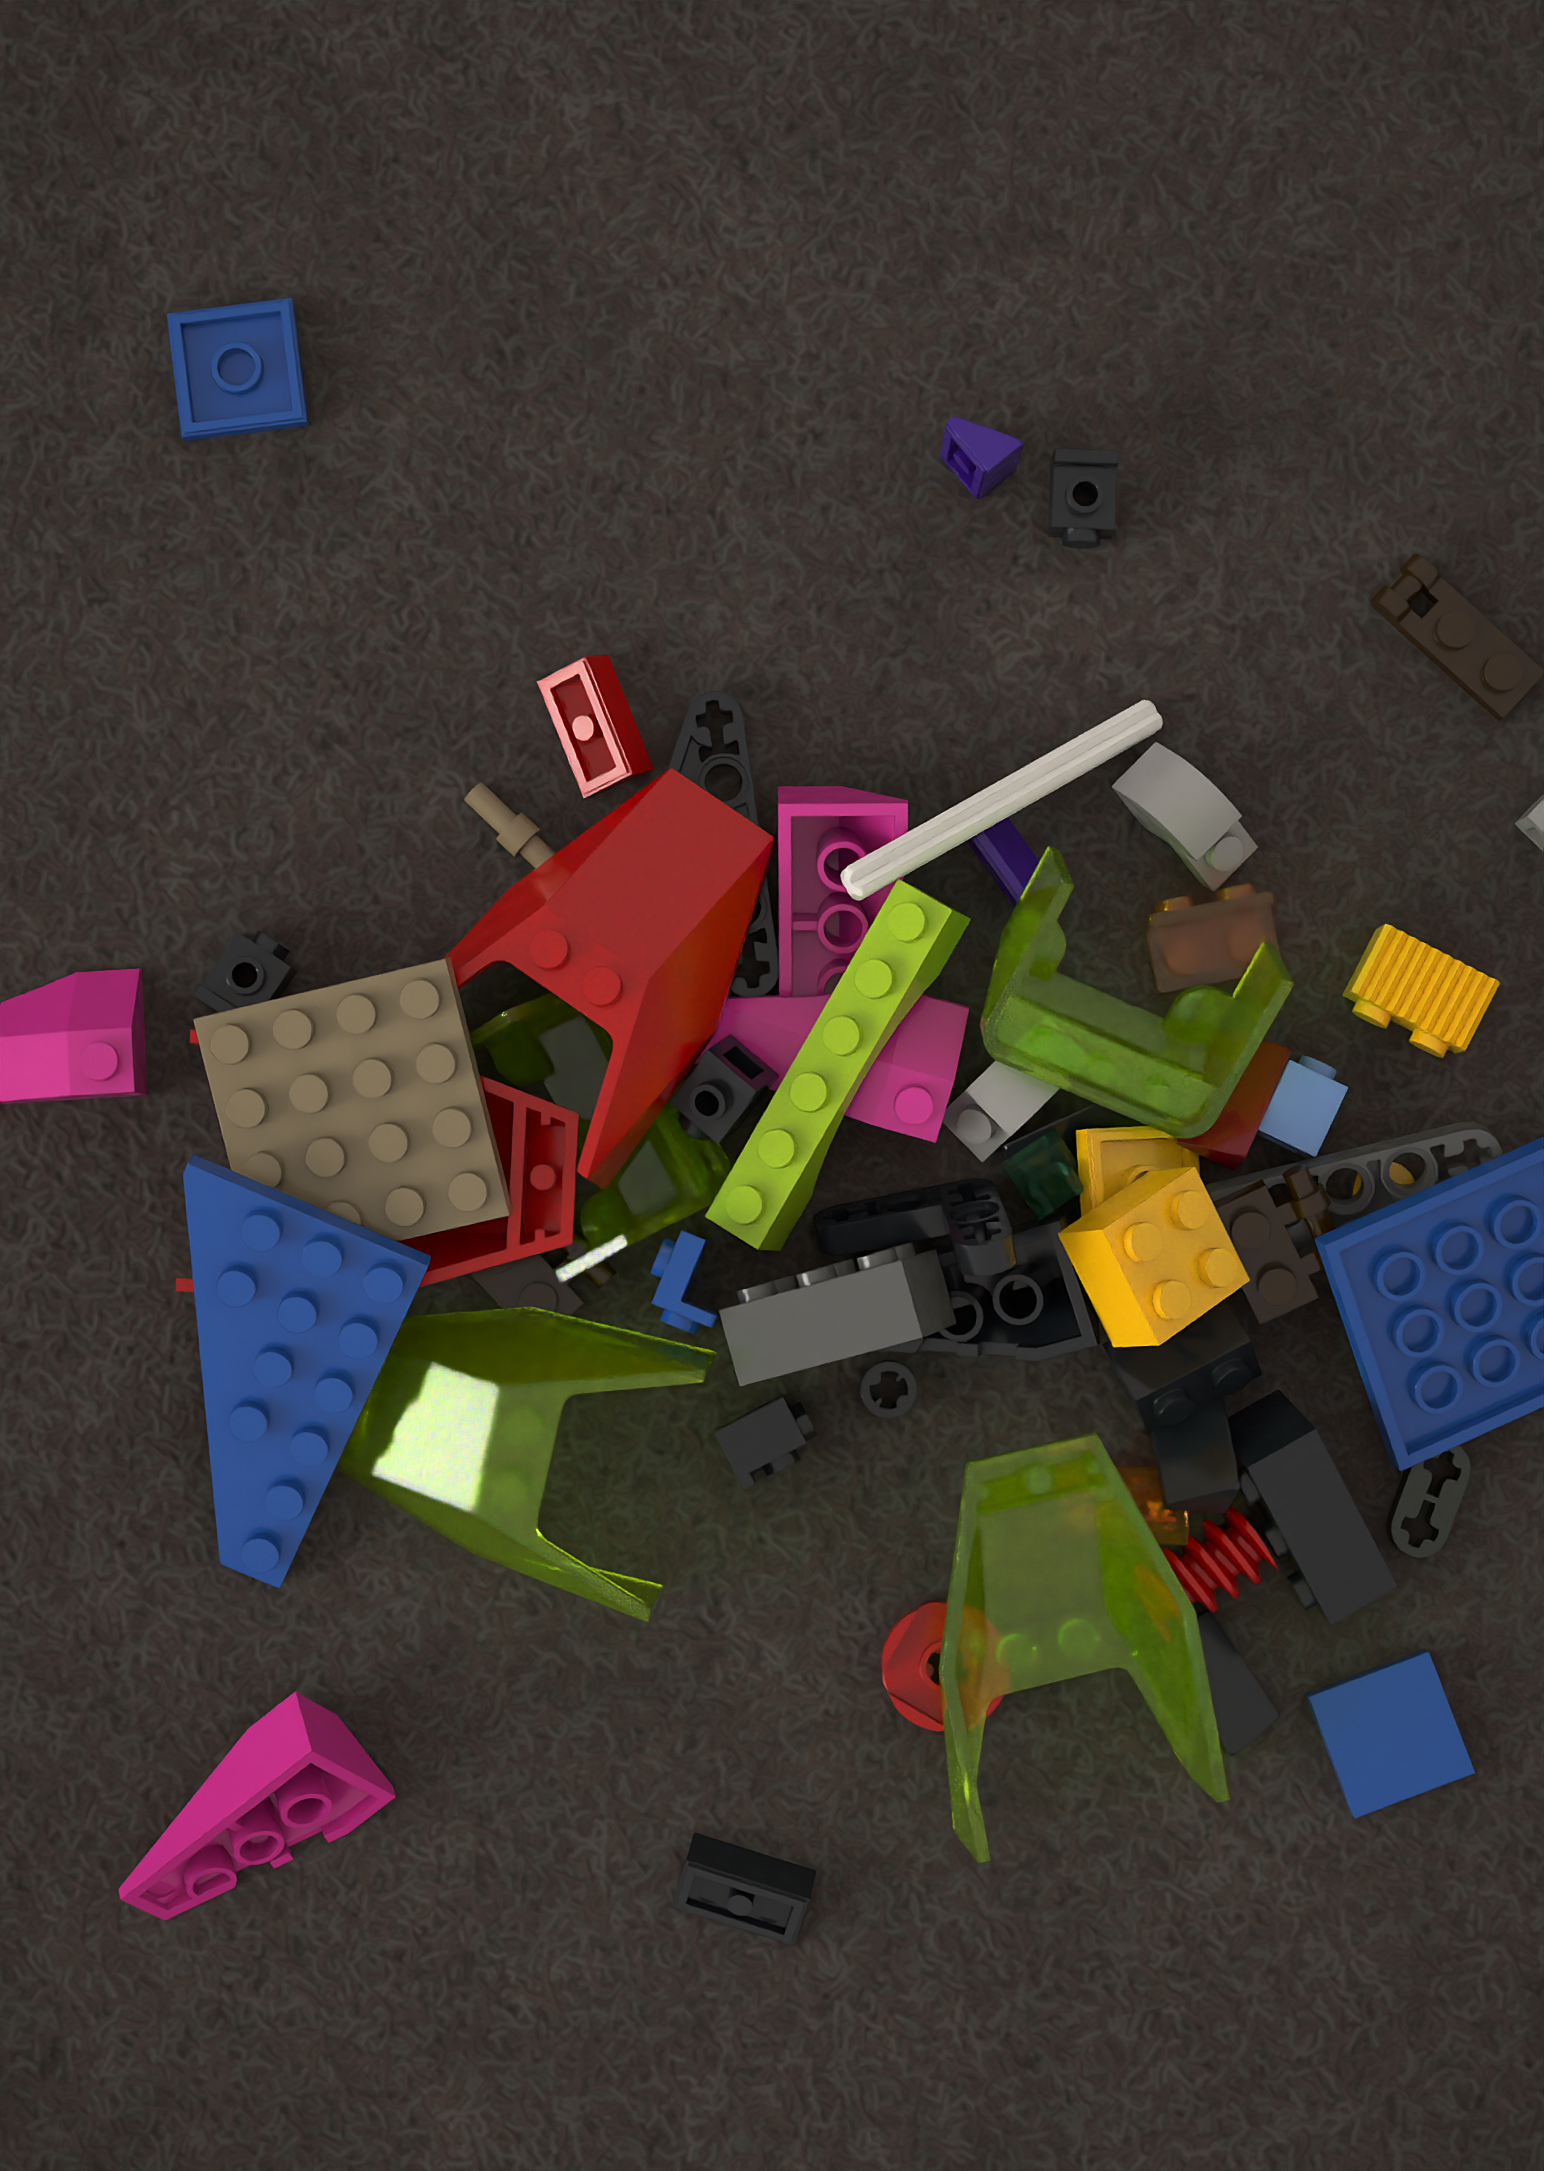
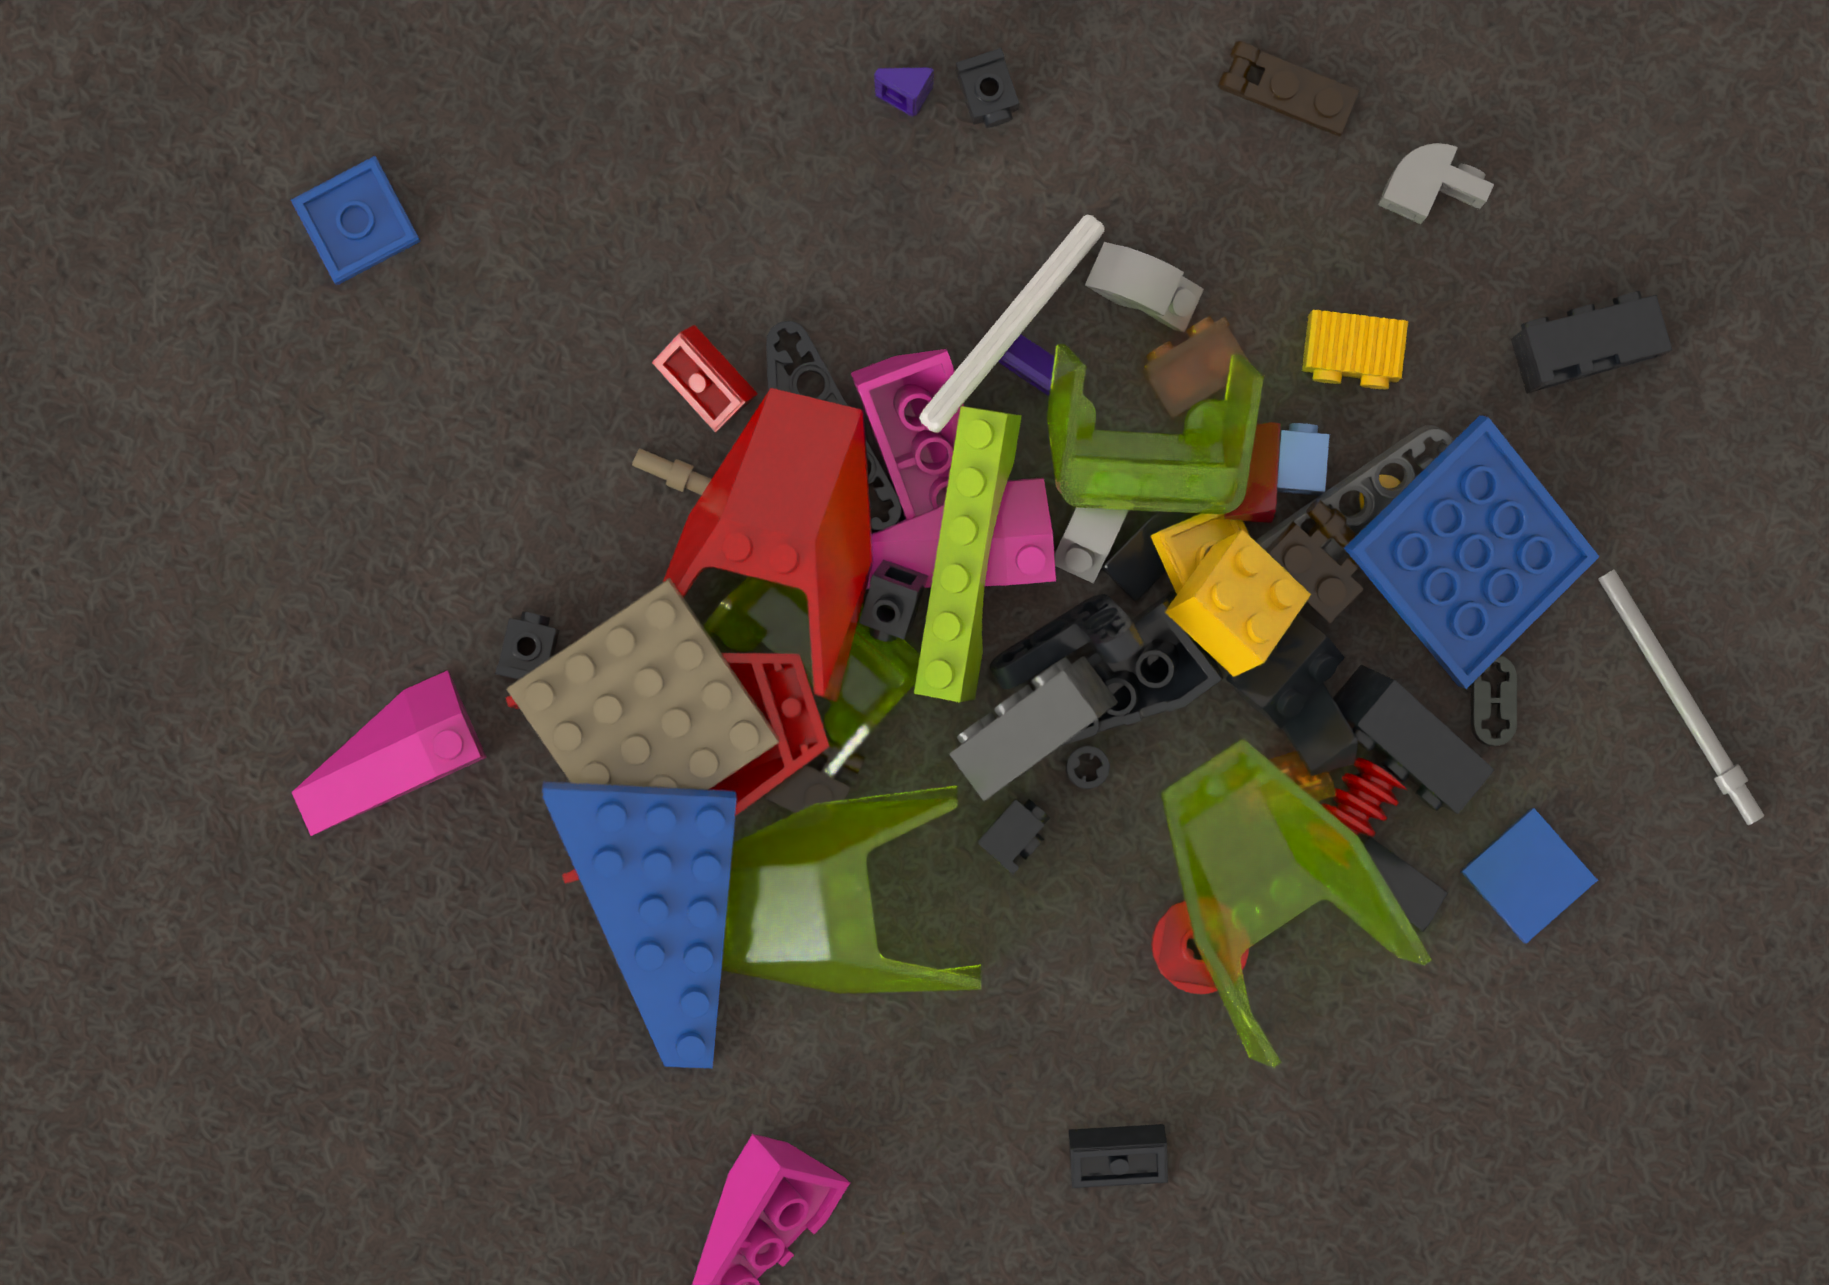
camera: 25 degrees left, 0 degrees up
(676, 1267) = (907, 736): blue bracket -> none
(1045, 1174) = (1140, 574): clear green tile -> none

